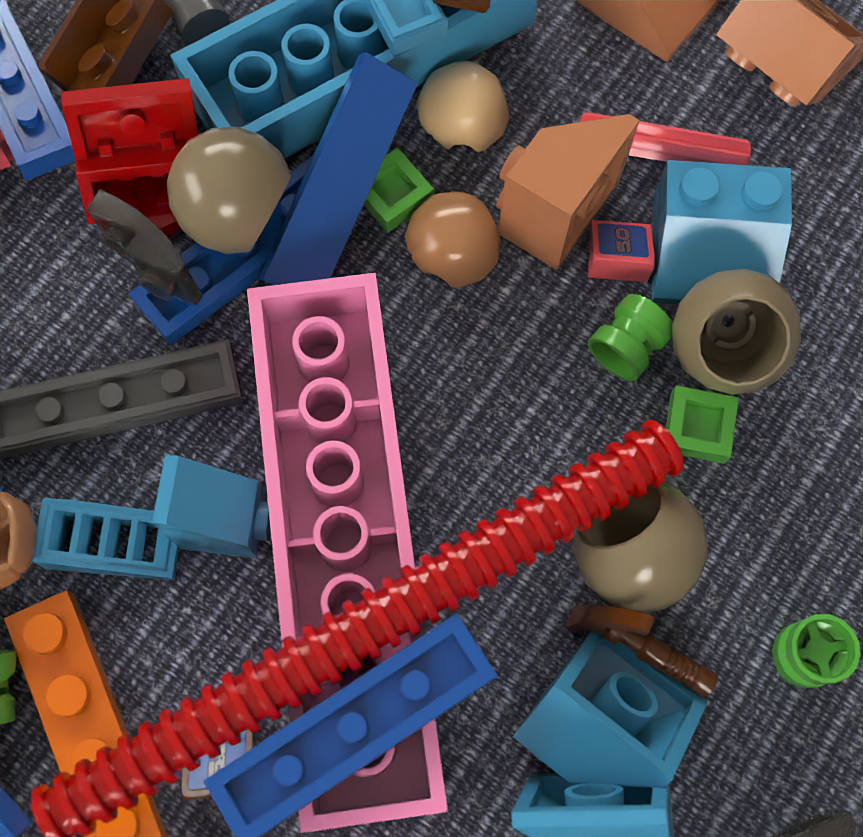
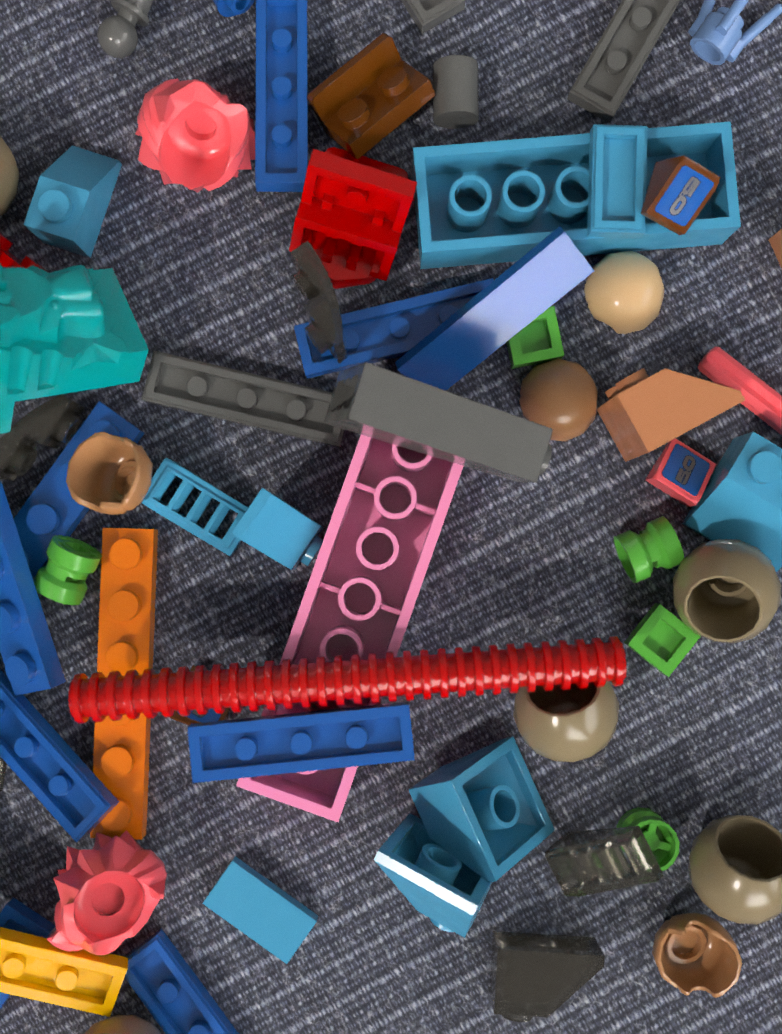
camera: 30 degrees right, 15 degrees up
(226, 187) = (404, 291): dark tan helmet -> none
(326, 290) = (438, 423): none -> dark grey slope
(623, 626) = (532, 773): reddish brown piece -> none
(756, 729) = (594, 862): none -> clear smoke slope

